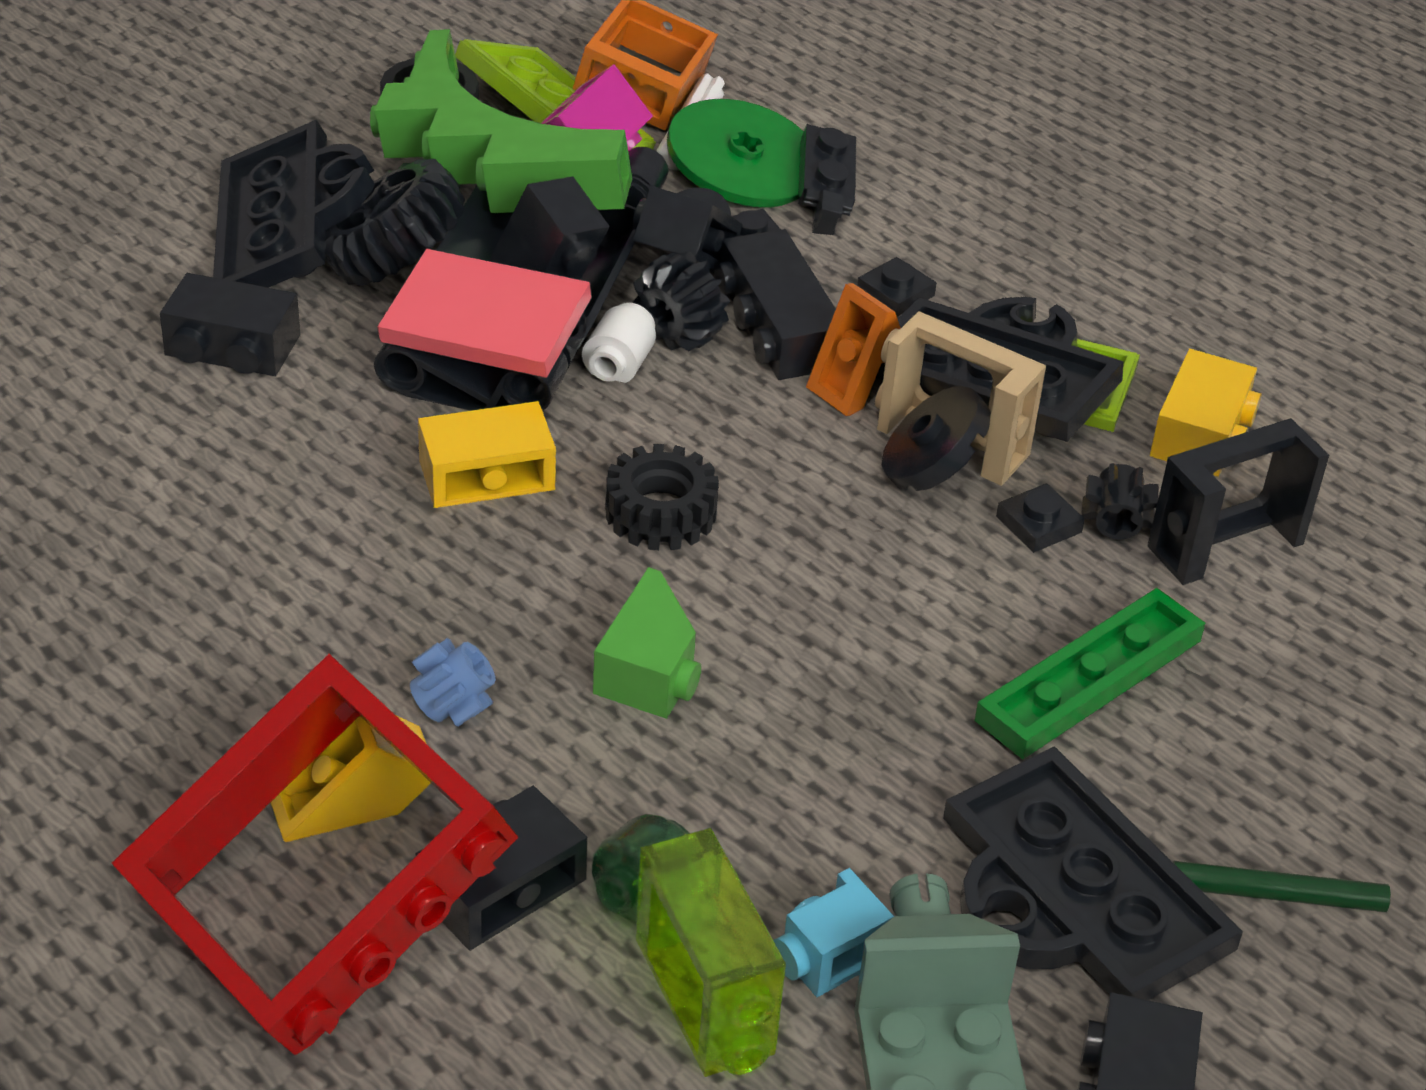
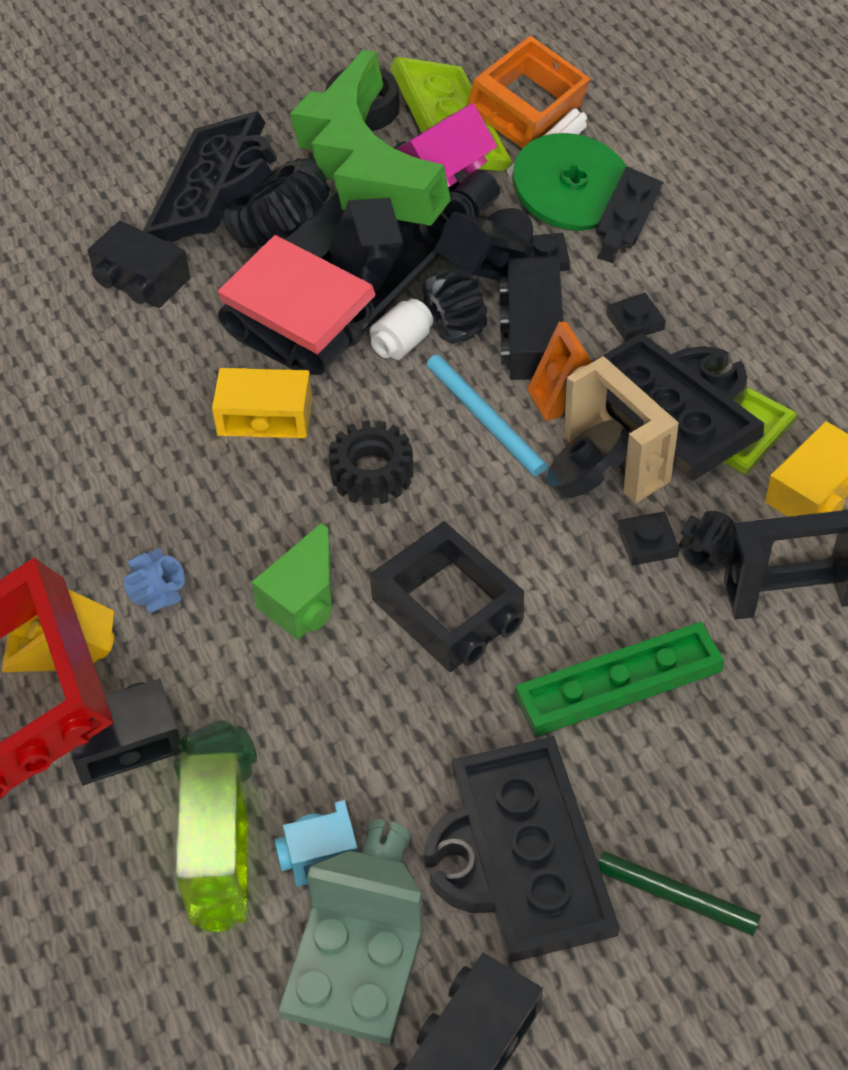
camera: 25 degrees right, 10 degrees up
(772, 422) = (487, 415): none -> medium azure bar
(857, 675) = (420, 562): none -> black window

